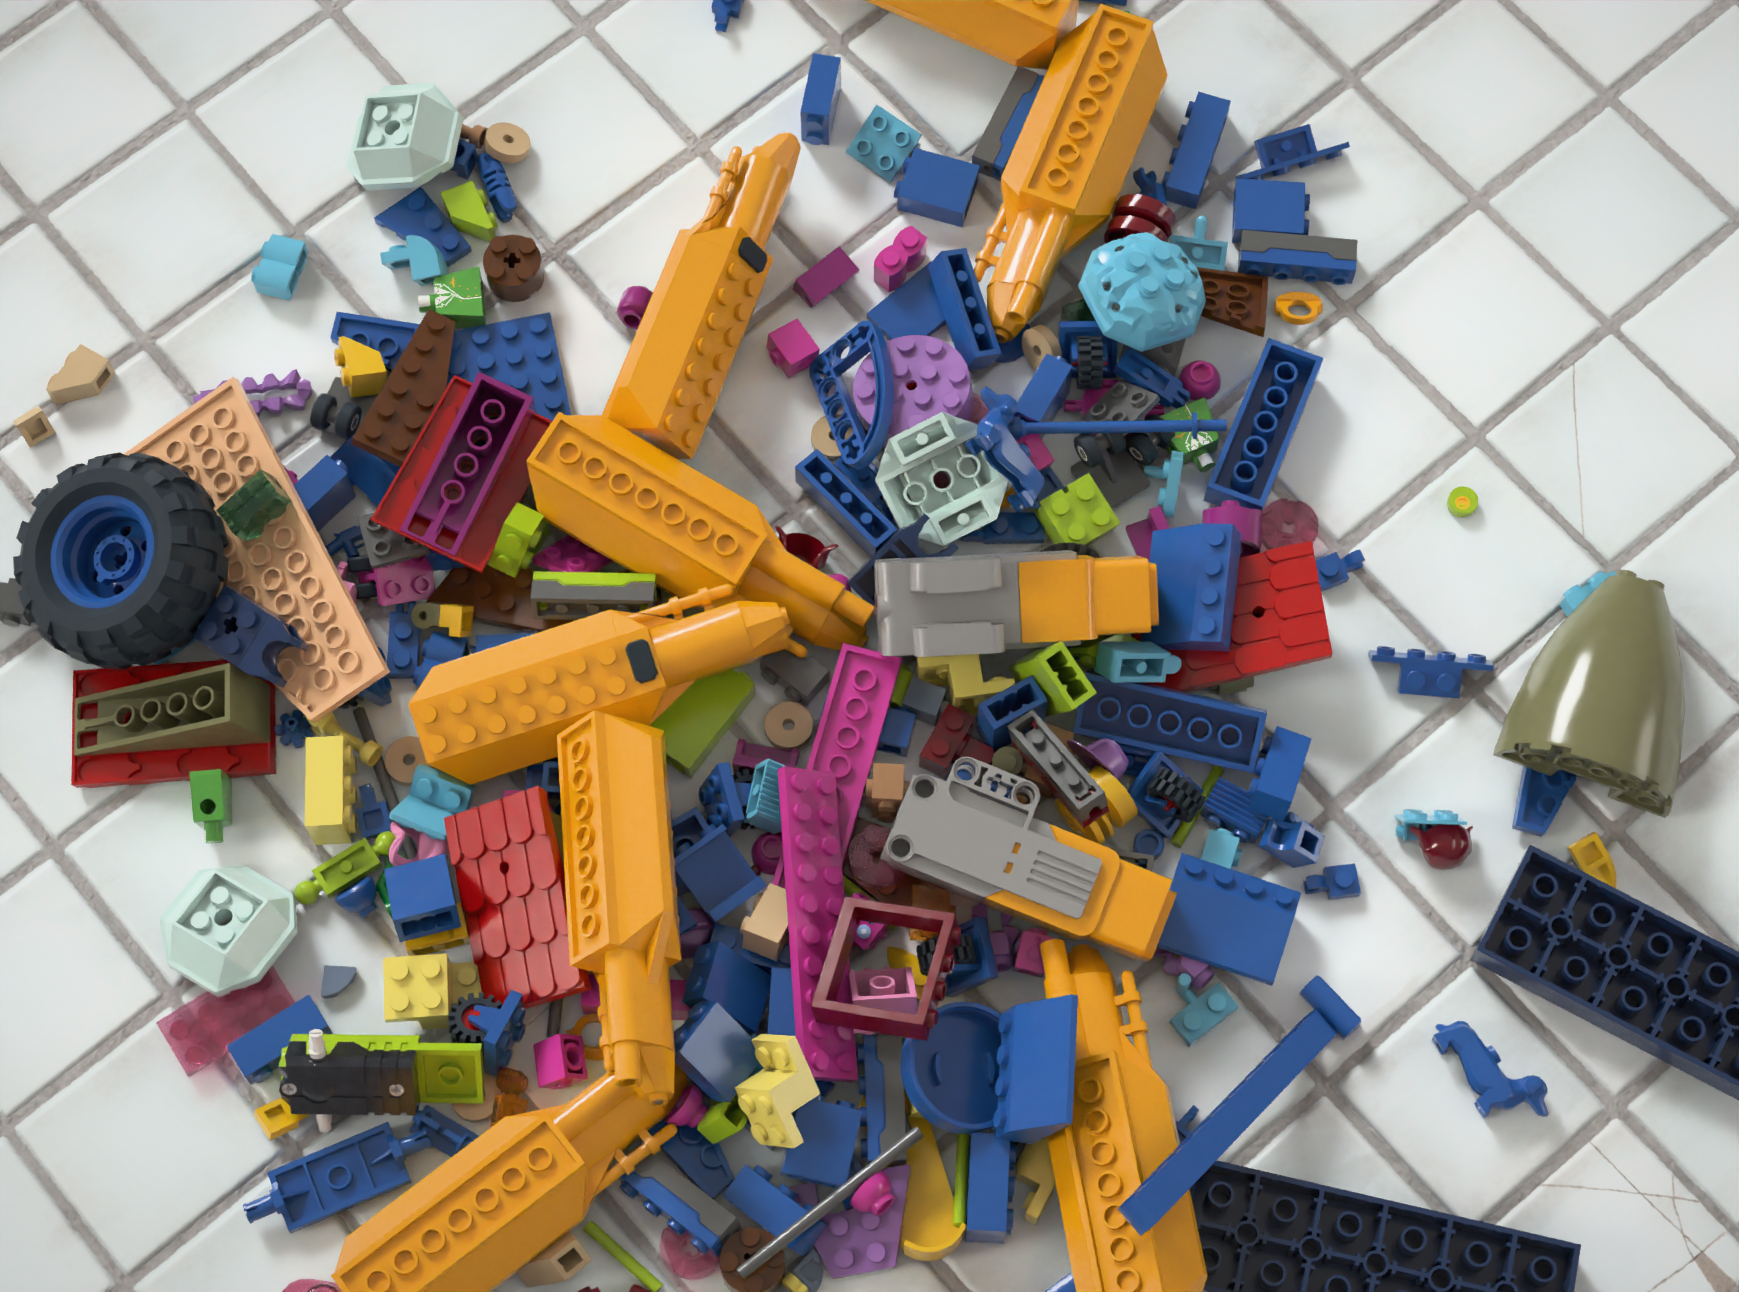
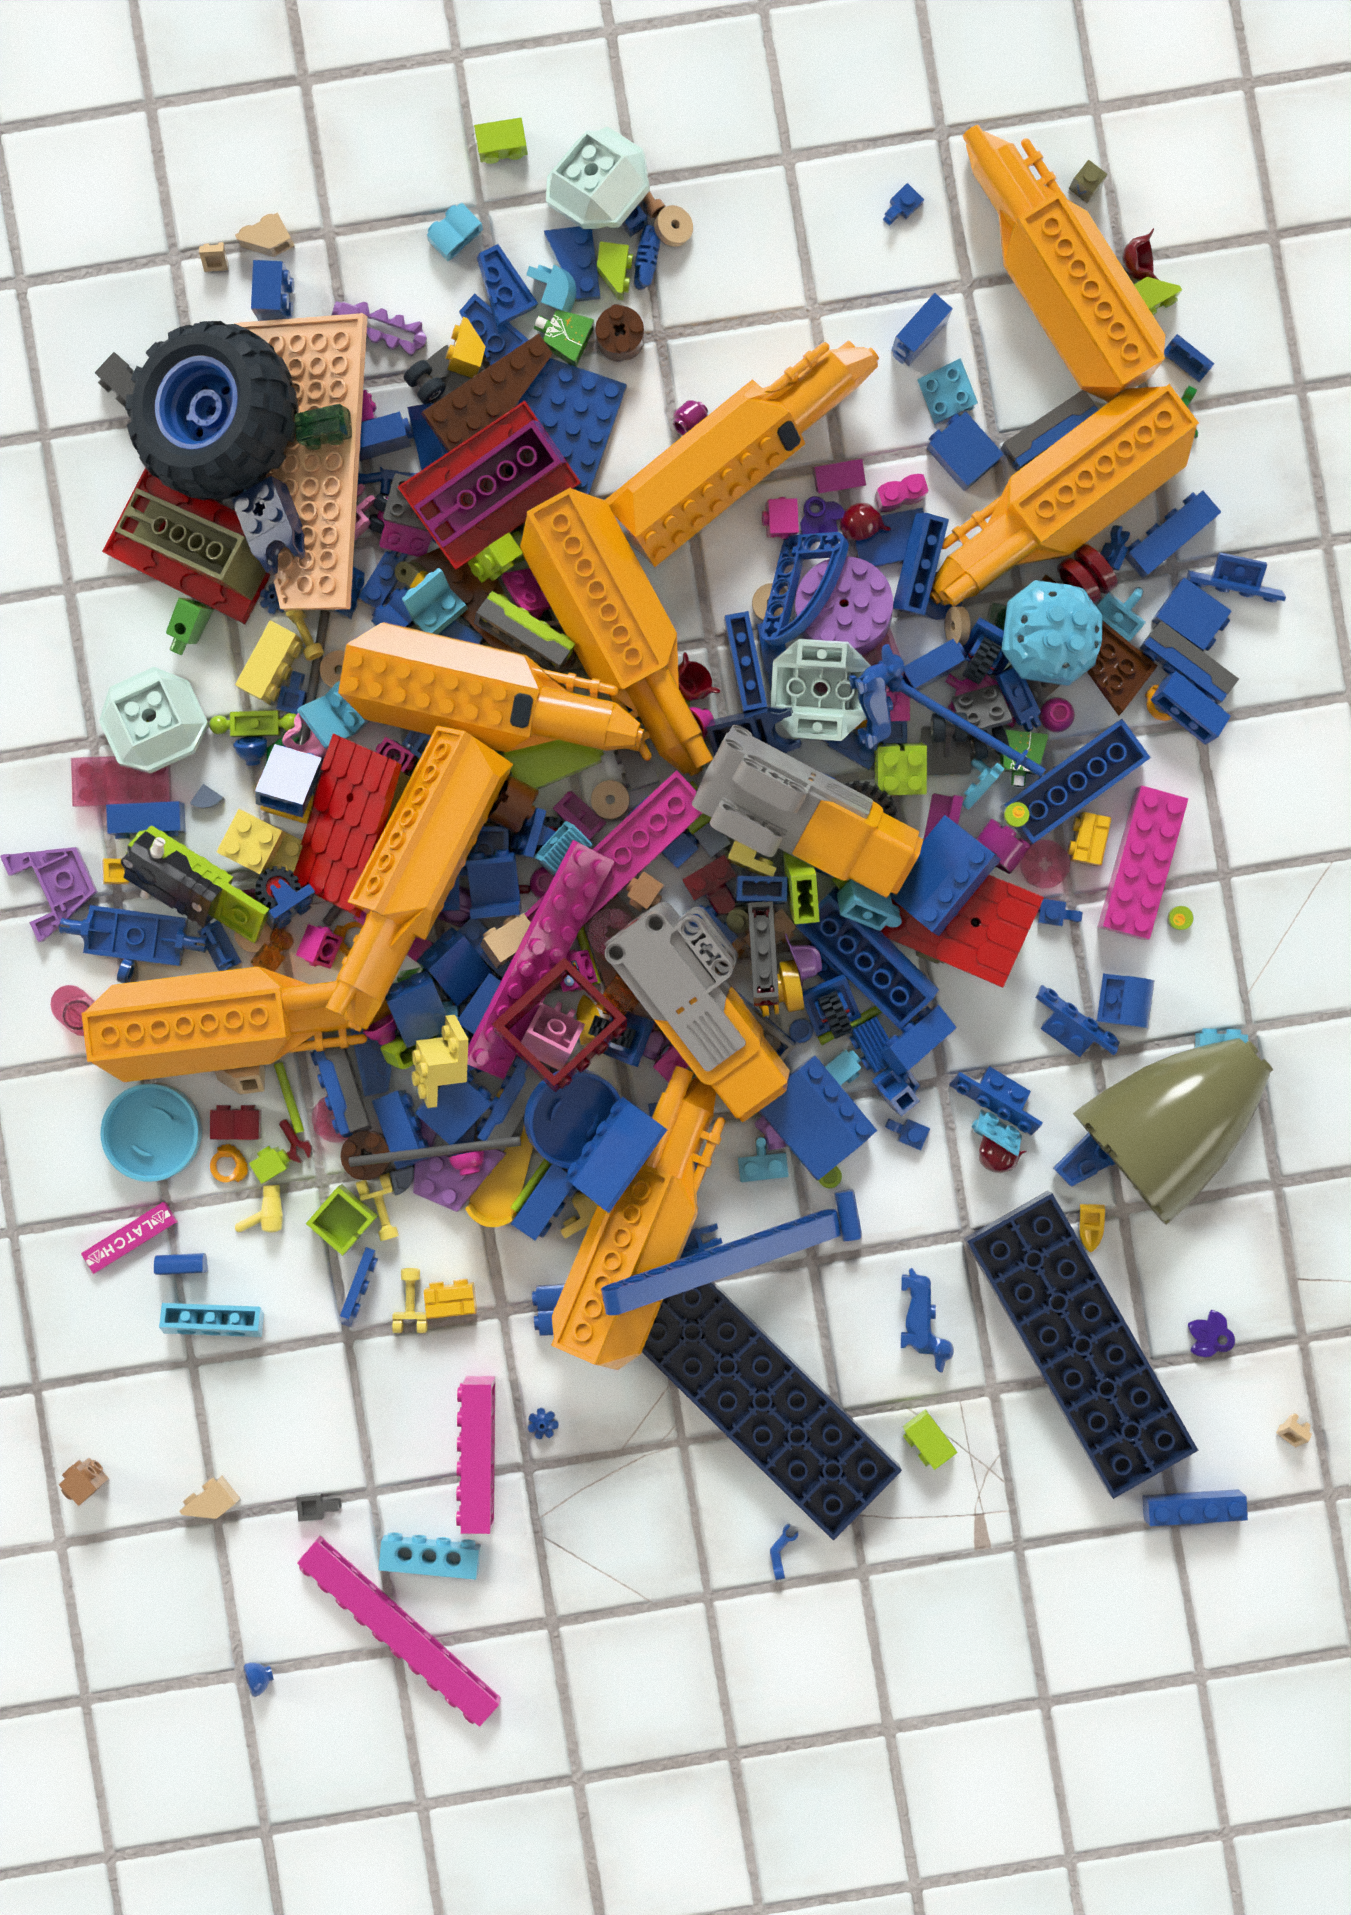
camera: 30 degrees right, 20 degrees up
(116, 416) = (271, 290): none -> blue brick
(219, 1164) = (63, 880): none -> medium lavender wing
(279, 157) = (501, 140): none -> lime brick
(350, 1220) = (125, 971): none -> blue tile
(364, 289) = (504, 286): none -> blue wing
(473, 623) = (433, 603): none -> medium azure bracket
(690, 776) = (513, 804): none -> reddish brown brick
(837, 324) = (824, 520): none -> dark purple plate
(878, 304) = (861, 522): none -> dark red hair
(1226, 486) = (1016, 814): none -> lime tile
(1285, 981) = (832, 1178): none -> lime tile
(1316, 476) = (1089, 838): none -> yellow brick
(1329, 294) = (1190, 707): none -> blue brick
(1387, 469) = (1142, 862): none -> dark pink brick
(1405, 787) = (1000, 1096): none -> blue bracket
(1465, 611) = (1125, 1000): none -> blue brick
(1586, 1198) = (929, 1439): none -> lime brick

